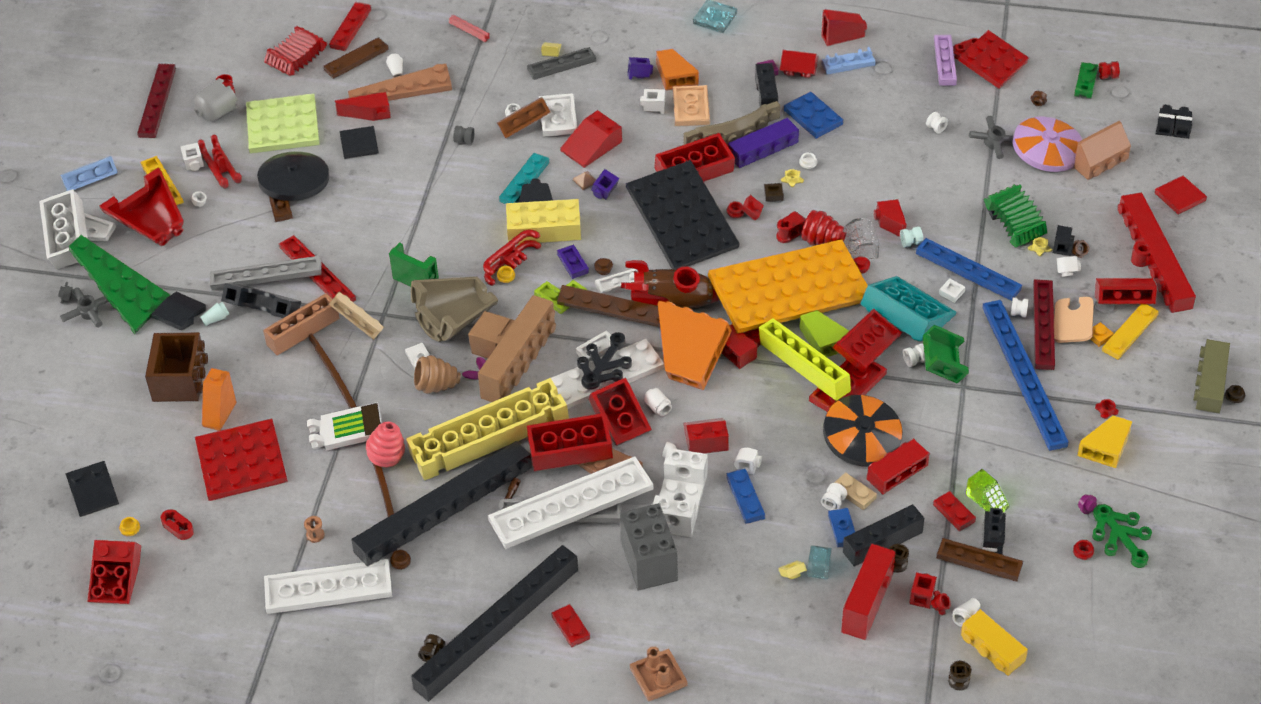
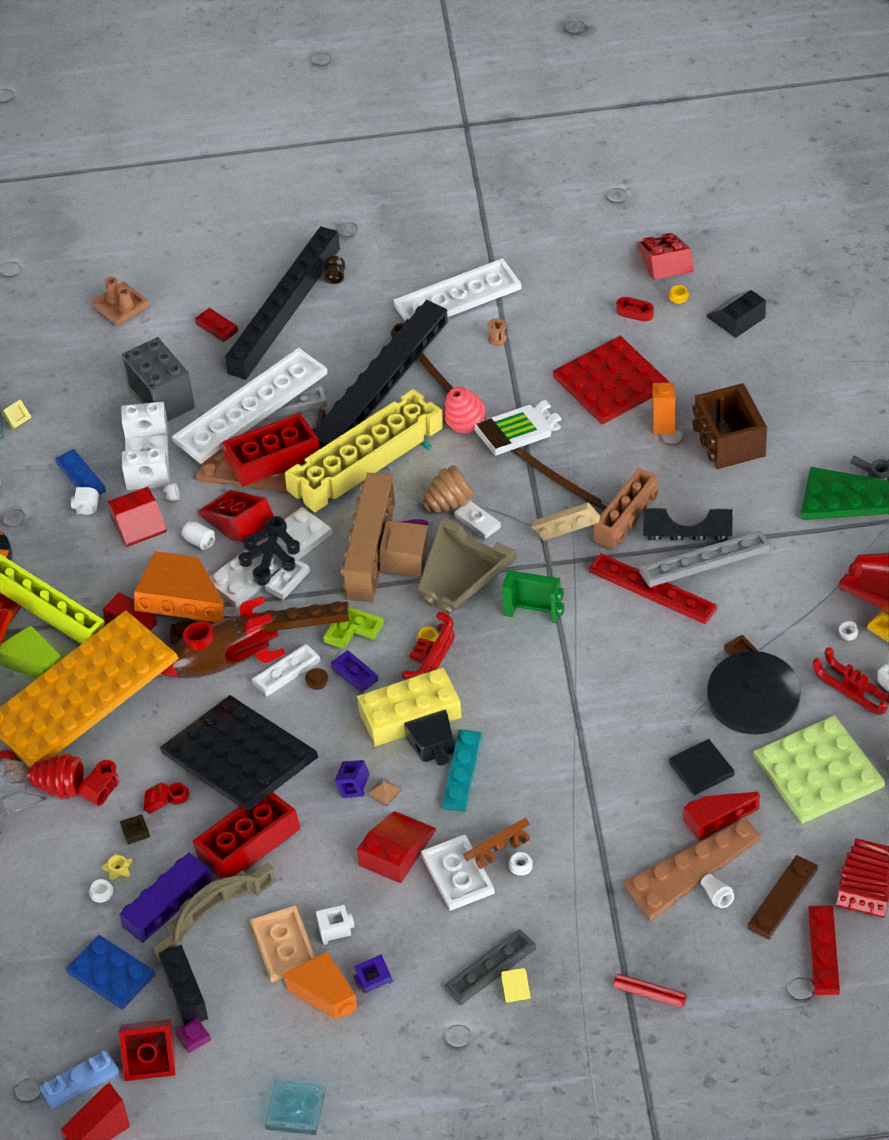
camera: 165 degrees right, 0 degrees up
(178, 311) = (777, 500): black slope -> none
(215, 313) = (735, 502): light aqua cone -> none
(464, 135) = (567, 804): dark grey wheel -> none

